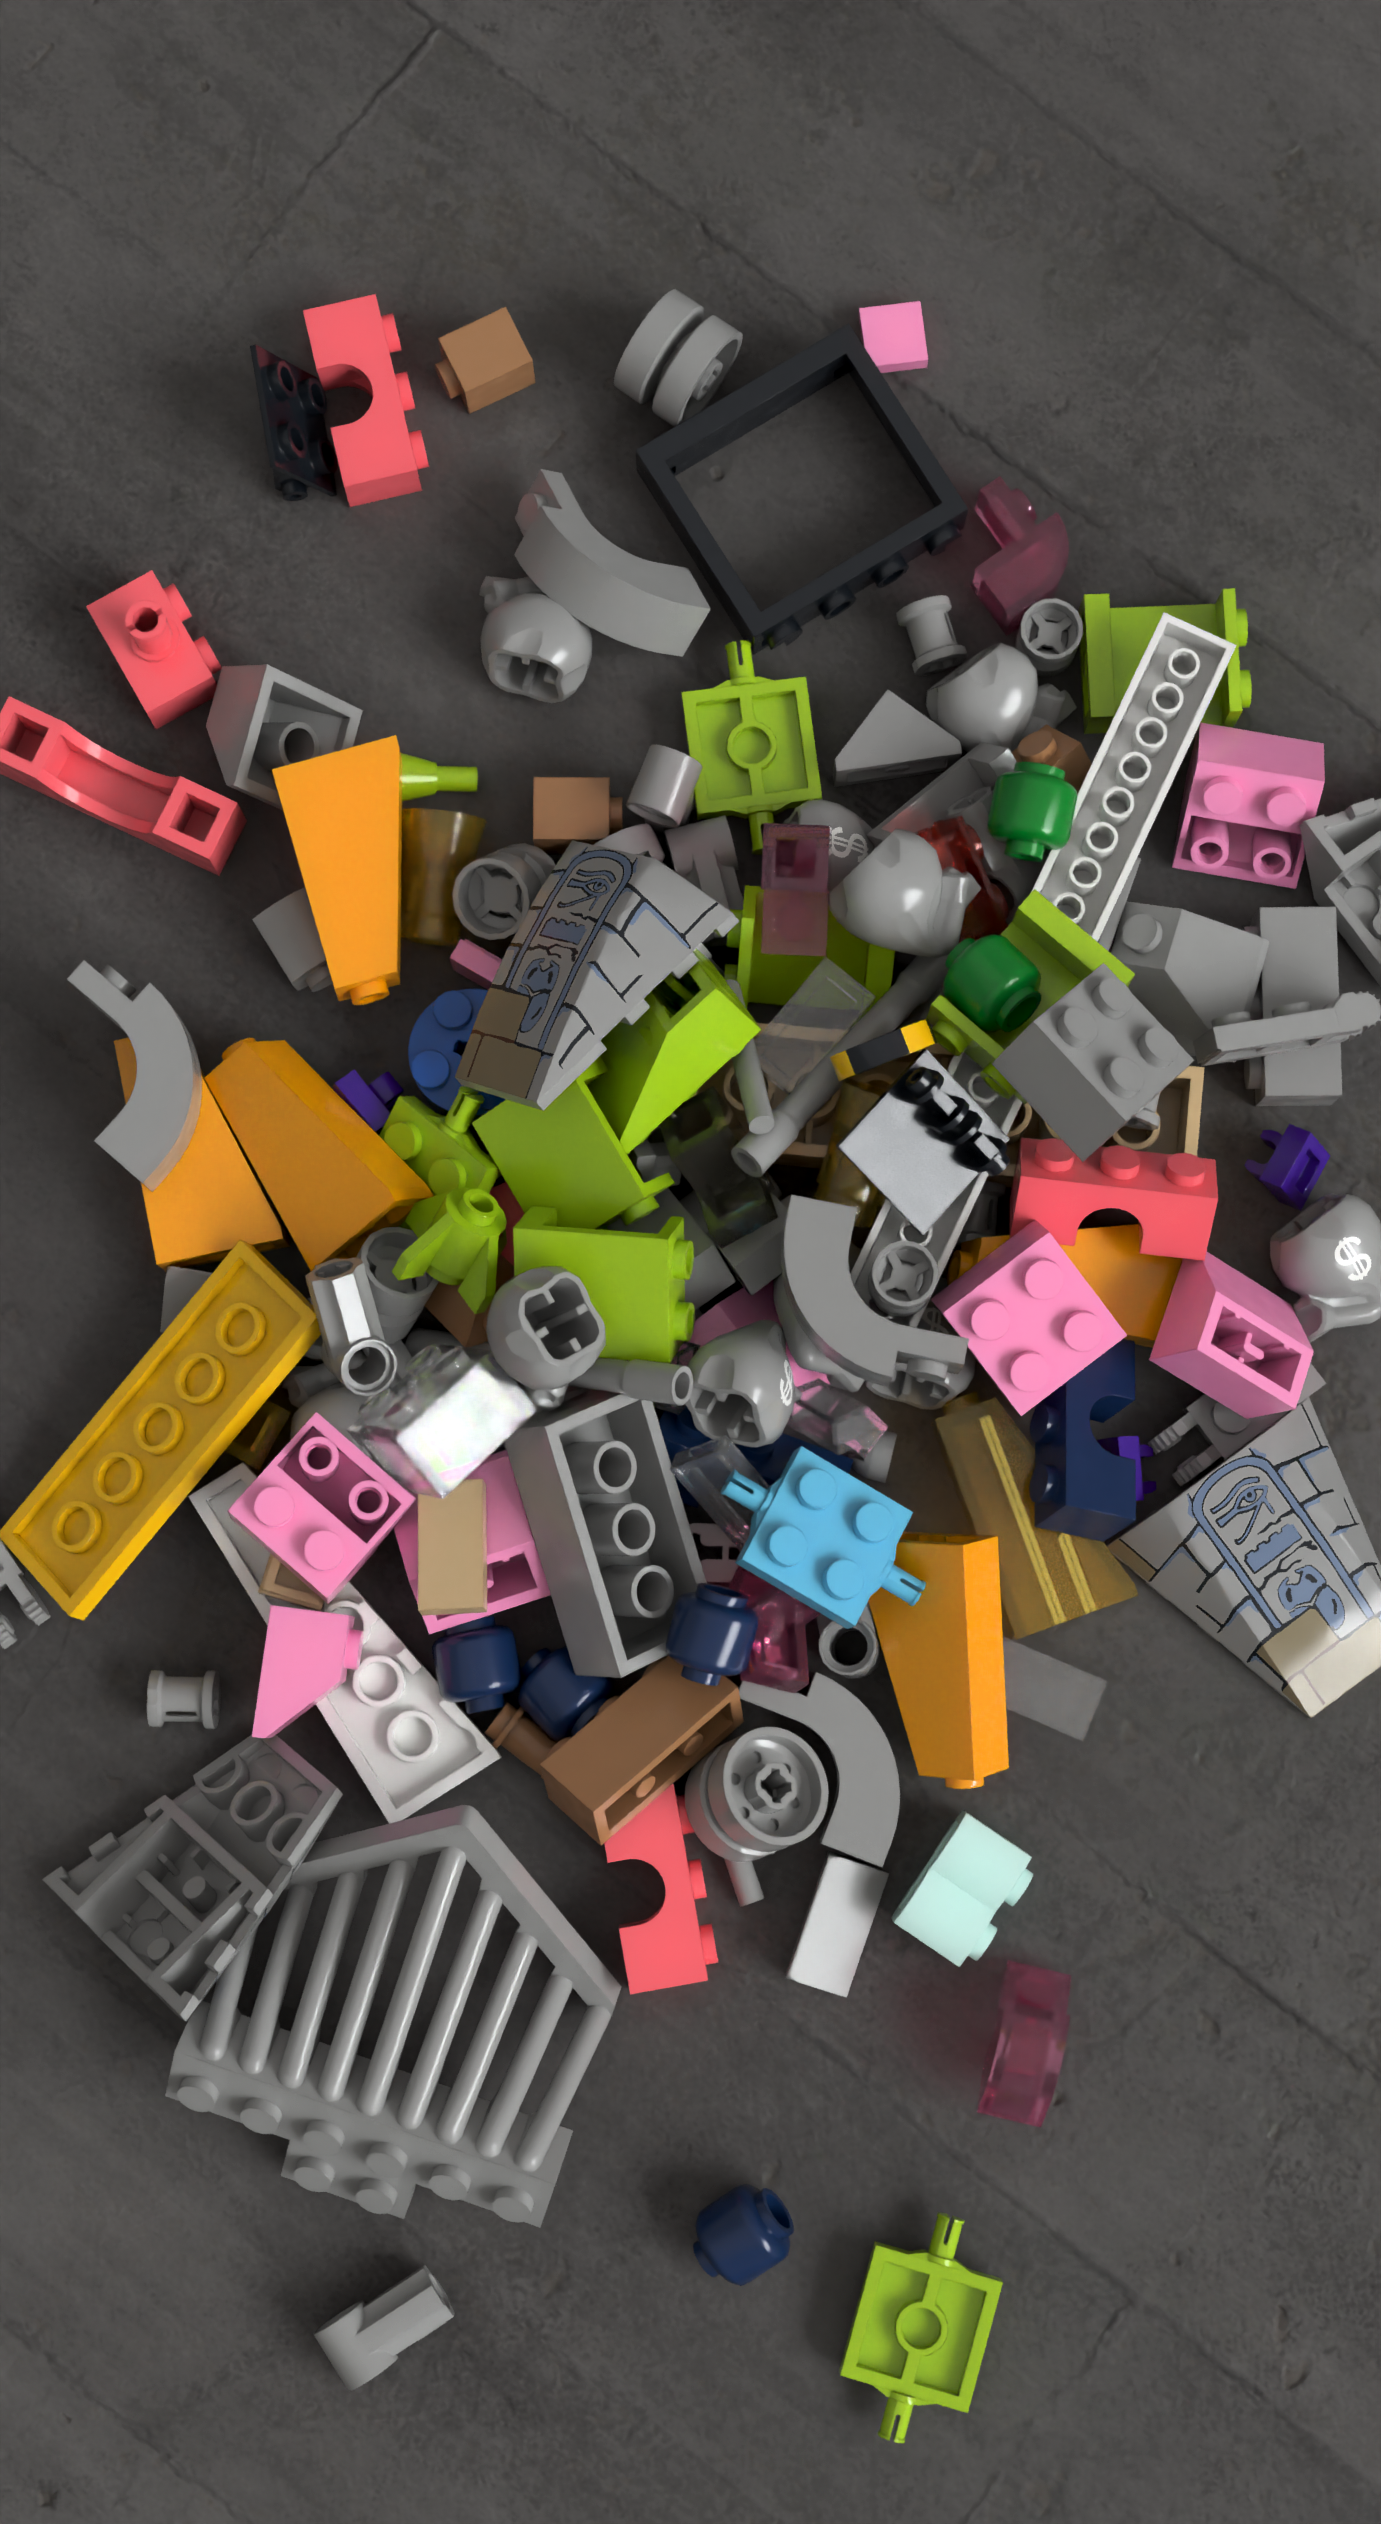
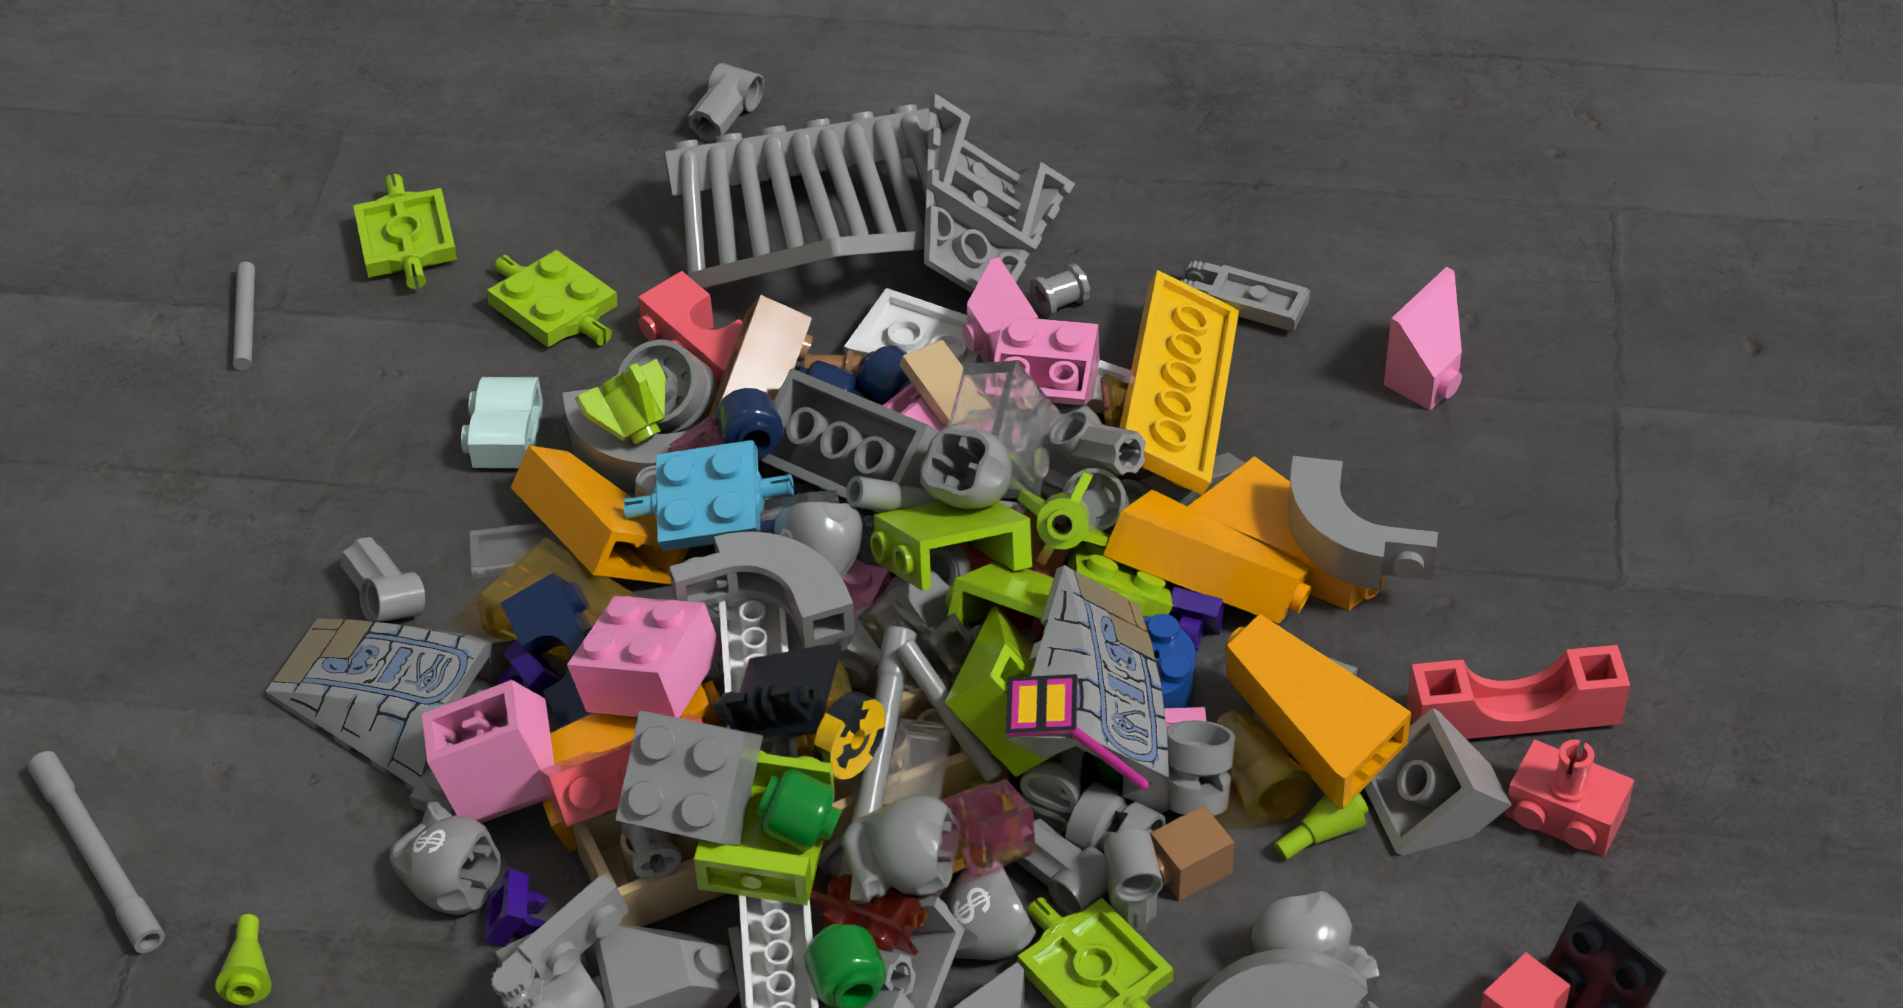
camera: 150 degrees right, 35 degrees down
(679, 920) = (1050, 707): none -> piece
(743, 2234) = (540, 218): dark blue head -> none
(794, 2086) = (552, 299): none -> lime plate
(831, 1757) = (628, 403): none -> lime brick
(836, 1924) = (572, 367): slope -> none
(908, 1269) = (745, 612): light grey wheel -> none
(1026, 2044) = (418, 371): clear pink brick -> none
(1184, 2304) = (244, 316): none -> light grey bar
(1223, 1689) = (382, 587): none -> light grey piece

